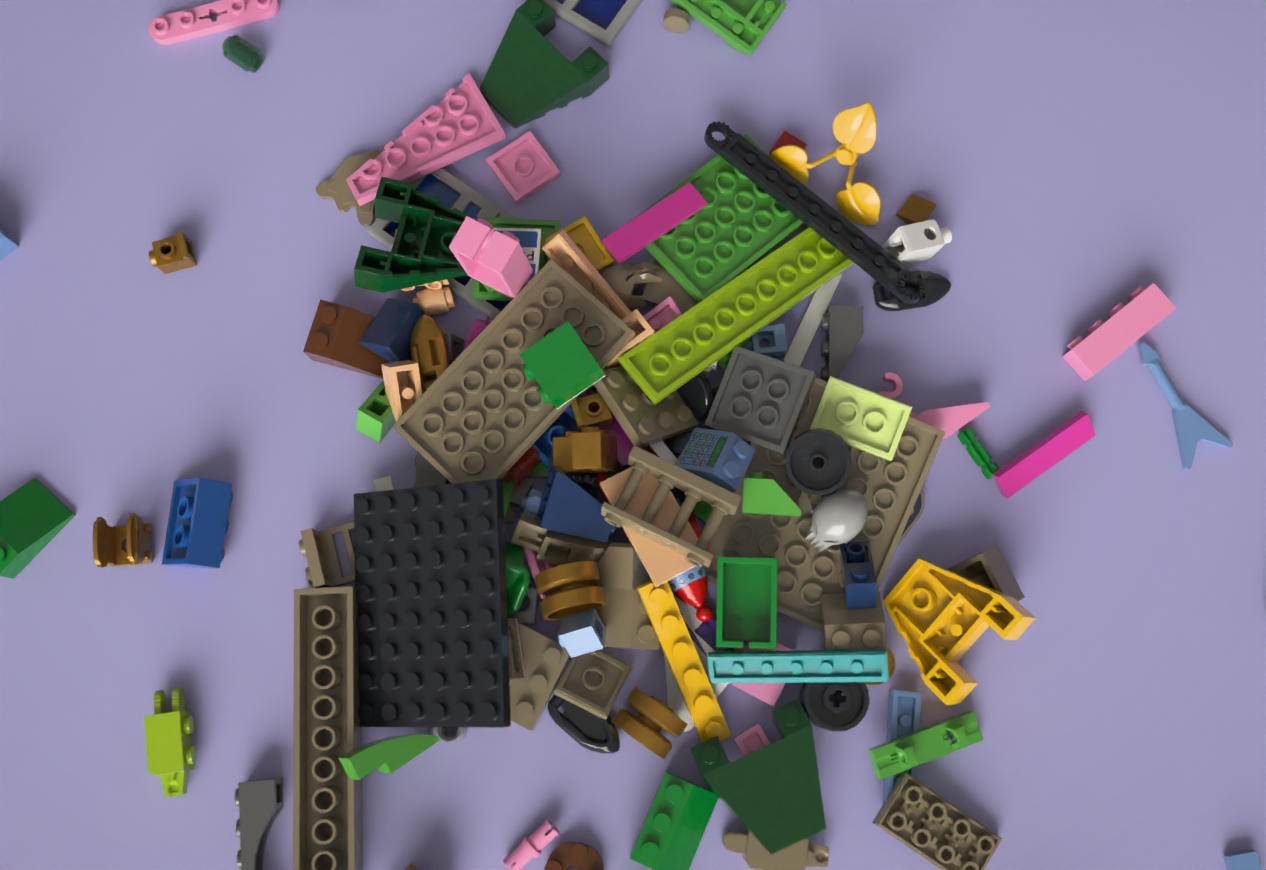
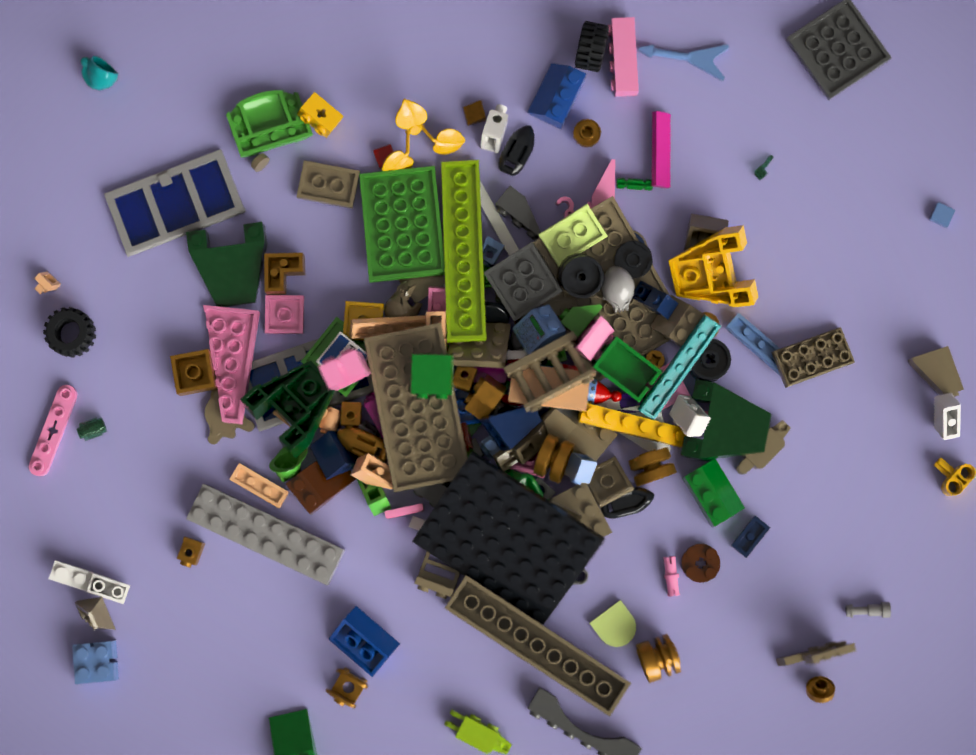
camera: 55 degrees left, 5 degrees up
(26, 199) = (95, 613): none -> dark tan slope
(64, 167) = (89, 581): none -> white slope
(248, 323) = (265, 534): none -> light grey brick
(302, 275) = (259, 485): none -> light nougat plate
(342, 288) = (286, 465): none -> bright green piece
(380, 111) = (193, 372): none -> pearl gold brick
(385, 754) = (569, 618): bright green slope -> none
(390, 464) = (404, 511): none -> bright pink tile
(421, 819) = (615, 625): none -> yellowish green tile
(457, 318) = (351, 414): none -> pearl gold brick
(568, 120) = (279, 266): none -> pearl gold brick
(654, 223) = (380, 265): dark pink tile -> none
(703, 100) = (328, 184): none -> dark tan plate
(746, 724) = (689, 416): none -> white brick
(754, 534) = (593, 338): none -> bright pink slope
(779, 43) = (318, 106): none -> yellow brick
(783, 635) = (658, 361): none -> pearl gold wheel
(814, 212) = (435, 171): black plate -> none
(890, 513) = (634, 258): none -> black tile
(925, 745) = (766, 330): bright green hinge -> none
(994, 353) = (587, 133): none -> pearl gold plate
(1013, 288) = (557, 94): none -> blue slope
(1102, 281) = (591, 46): none -> black tyre
(1113, 595) = (760, 173): none -> clear green hand

